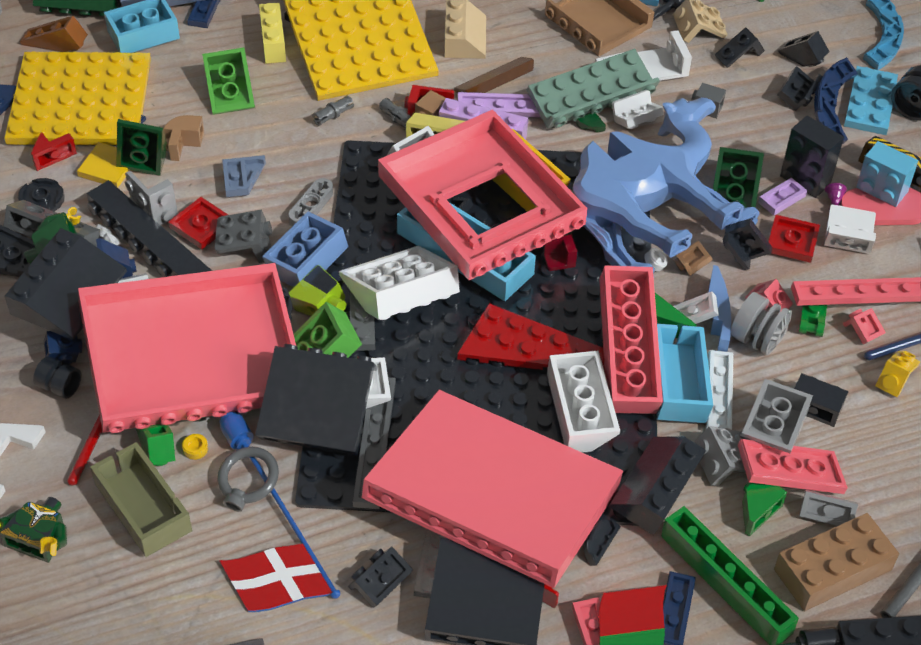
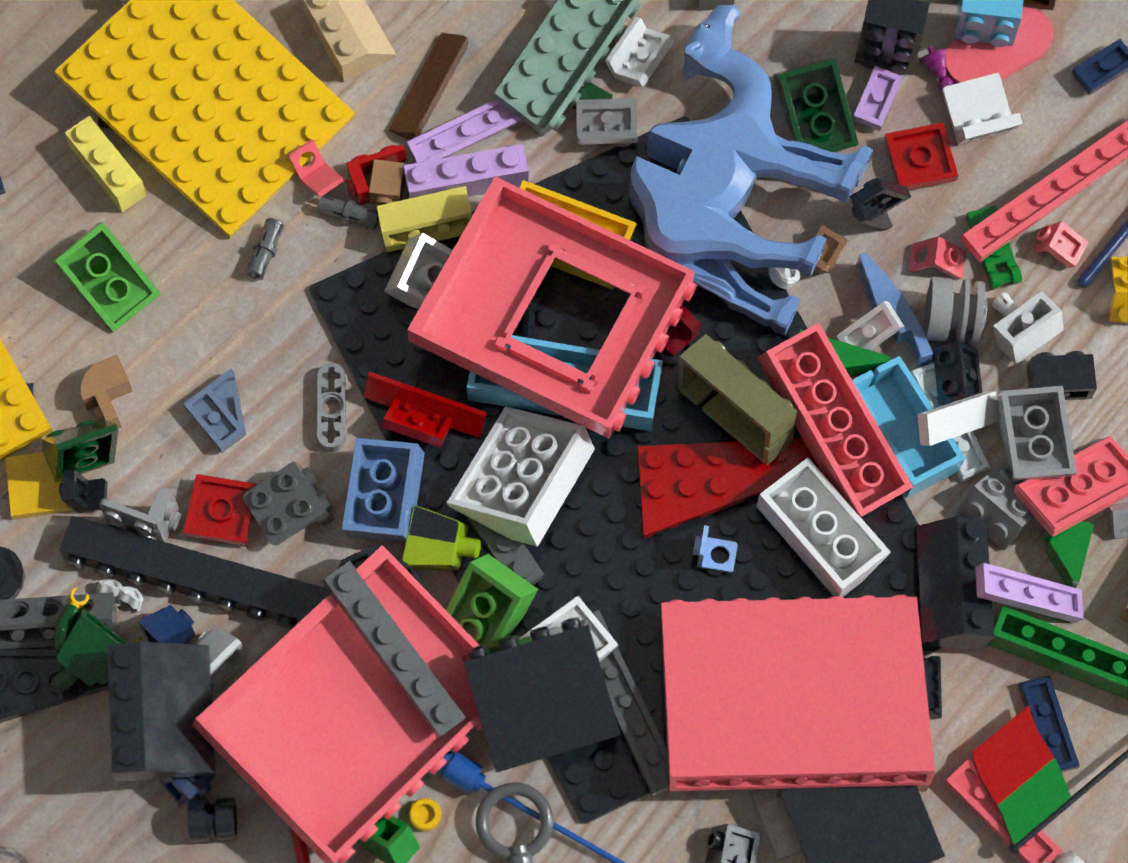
camera: 30 degrees left, 20 degrees up
(119, 168) = (81, 493): none -> black bracket
(237, 323) = (393, 649): none -> dark grey plate
(362, 223) = (421, 412): none -> red bracket
(395, 89) = (317, 175): none -> coral bracket
(492, 380) = (703, 548): none -> light blue bracket
(571, 298) = (743, 403): none -> olive piece
(588, 129) = (606, 122): none -> light grey bracket
(709, 508) = (1029, 593): none -> lavender plate
(721, 377) = (957, 418): none -> white tile
(743, 365) = (956, 372): none -> black bracket
(810, 356) = (1026, 326): none -> white brick

